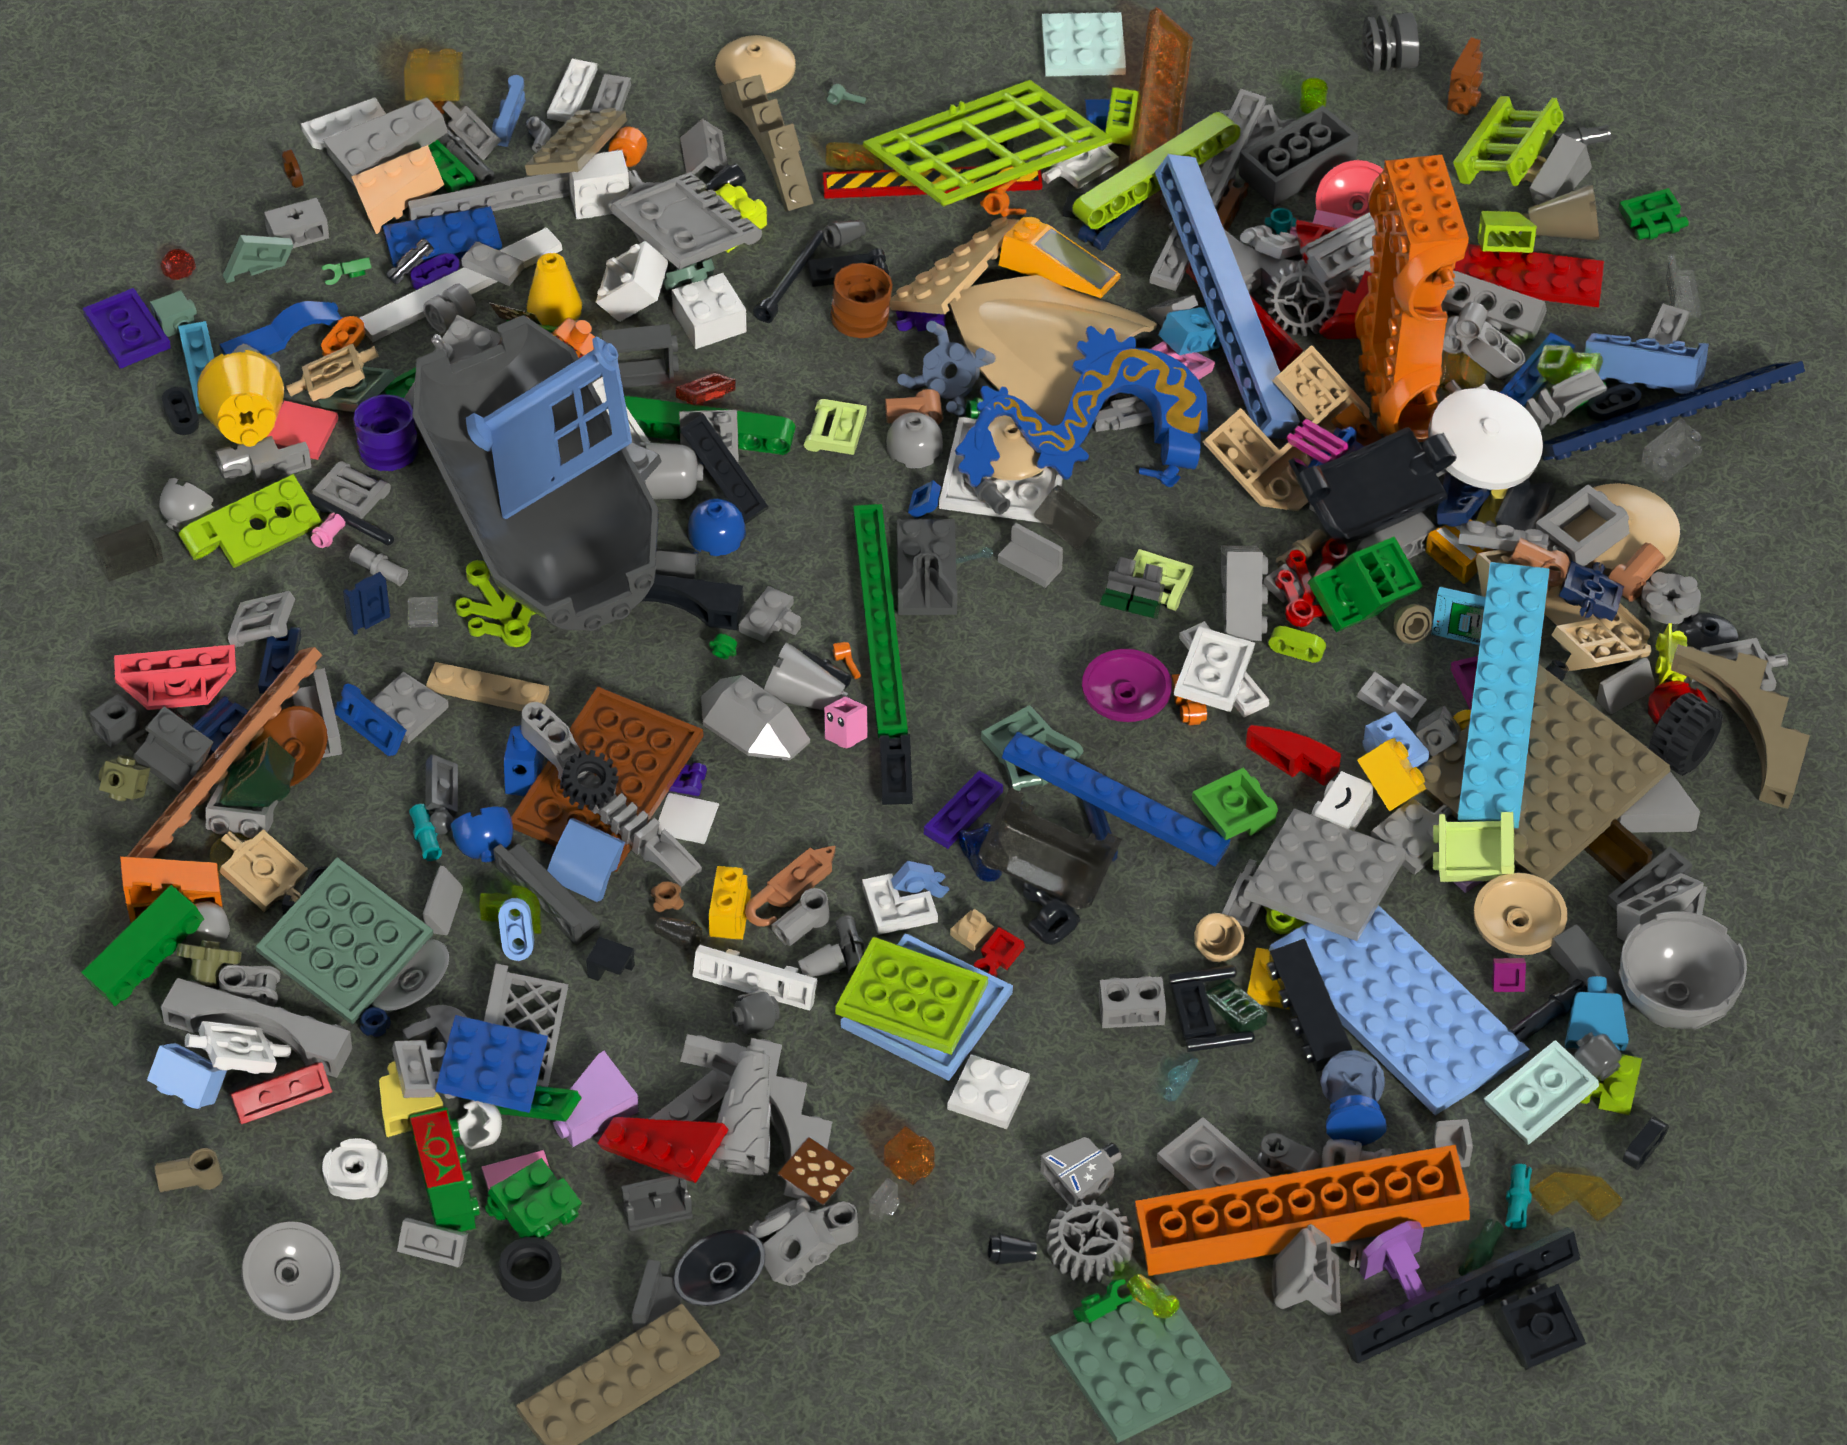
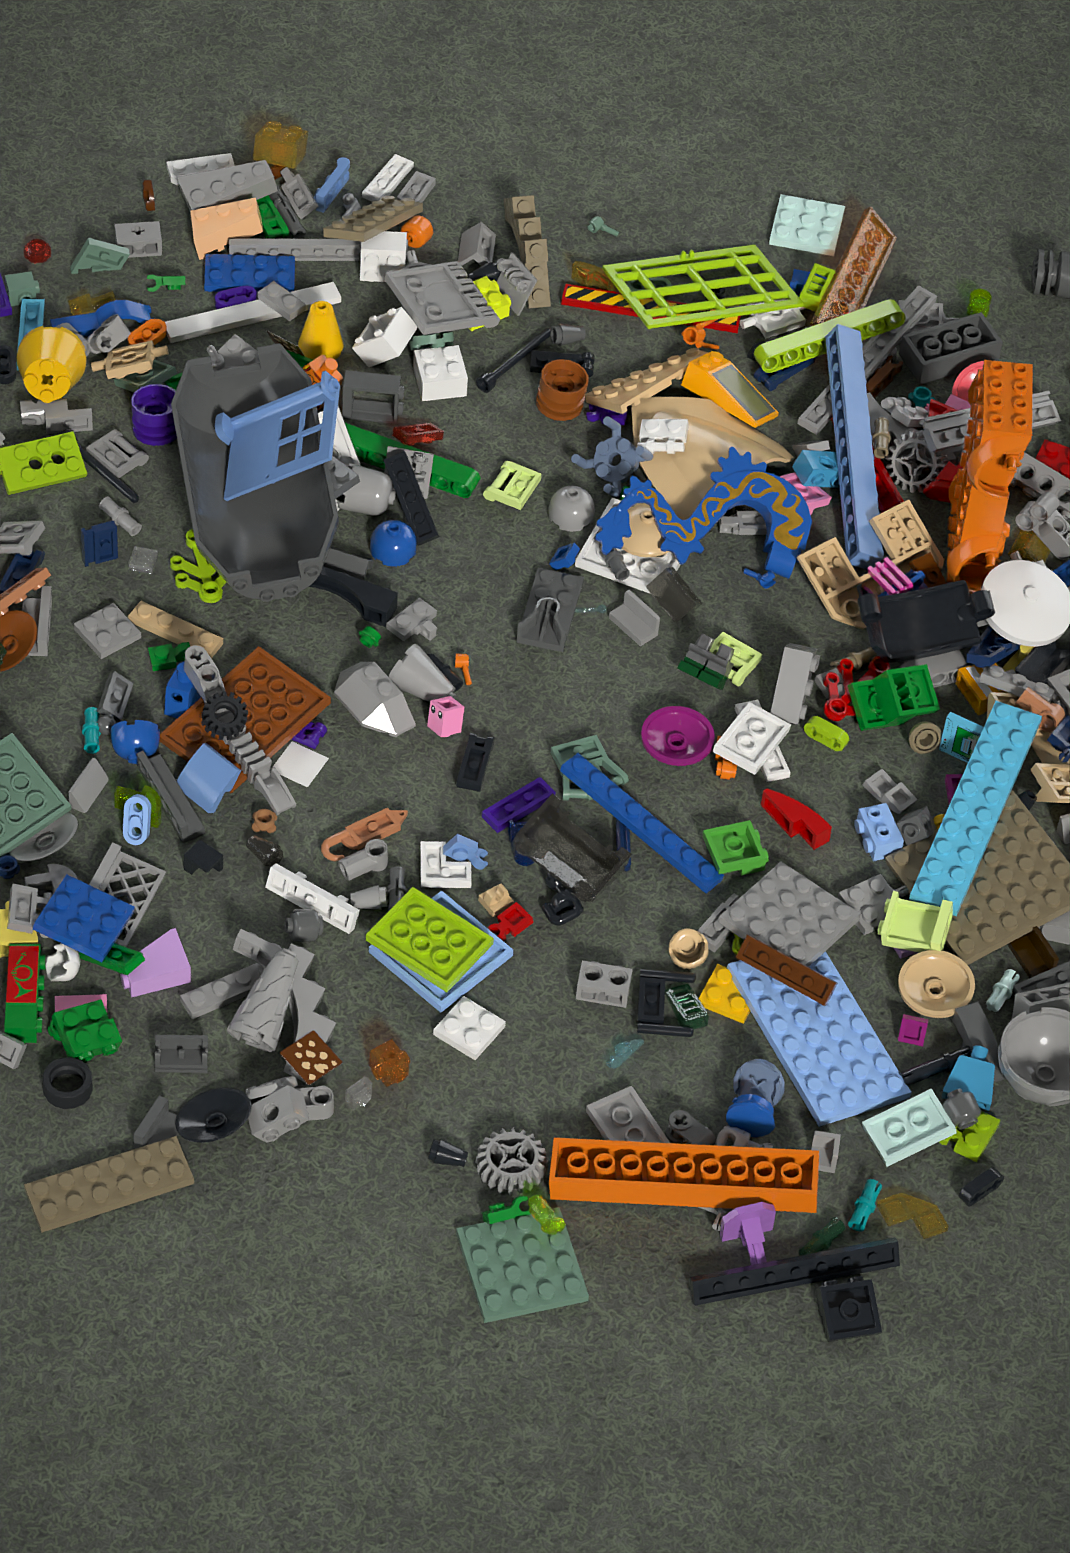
camera: 10 degrees right, 0 degrees up
(257, 317) = (86, 304): none -> clear yellow slope
(297, 348) = (108, 335): none -> light grey piece
(303, 423) = (95, 395): coral tile -> none
(323, 535) = (85, 483): bright pink pin -> none
(369, 720) = (75, 634): blue plate -> none
(409, 261) = (217, 285): black axle -> none
(443, 309) = (241, 325): light grey wheel -> none
(487, 724) = (165, 657): none -> green plate
(666, 1145) = (199, 1010): red wing -> none
(728, 903) = (309, 836): yellow window -> none
(756, 56) = (547, 184): tan dish -> none
(766, 181) = (515, 282): none -> light grey hinge
(880, 621) = (499, 643): green plate -> none
(925, 402) = (590, 481): nougat piece -> none
(1000, 329) = (663, 435): none -> white plate
(1080, 1170) = (521, 1104): light grey torso -> none
(1254, 278) = (881, 437): none -> dark tan pin
(1307, 1272) = (676, 1225): light grey piece -> none
(1308, 1002) = (742, 1014): black brick -> none
(1344, 937) = (786, 970): none -> reddish brown plate
(1345, 801) = (824, 865): white brick -> none
(1392, 773) = (867, 851): yellow brick -> none
(1596, 904) = (1002, 990): none -> light aqua axle

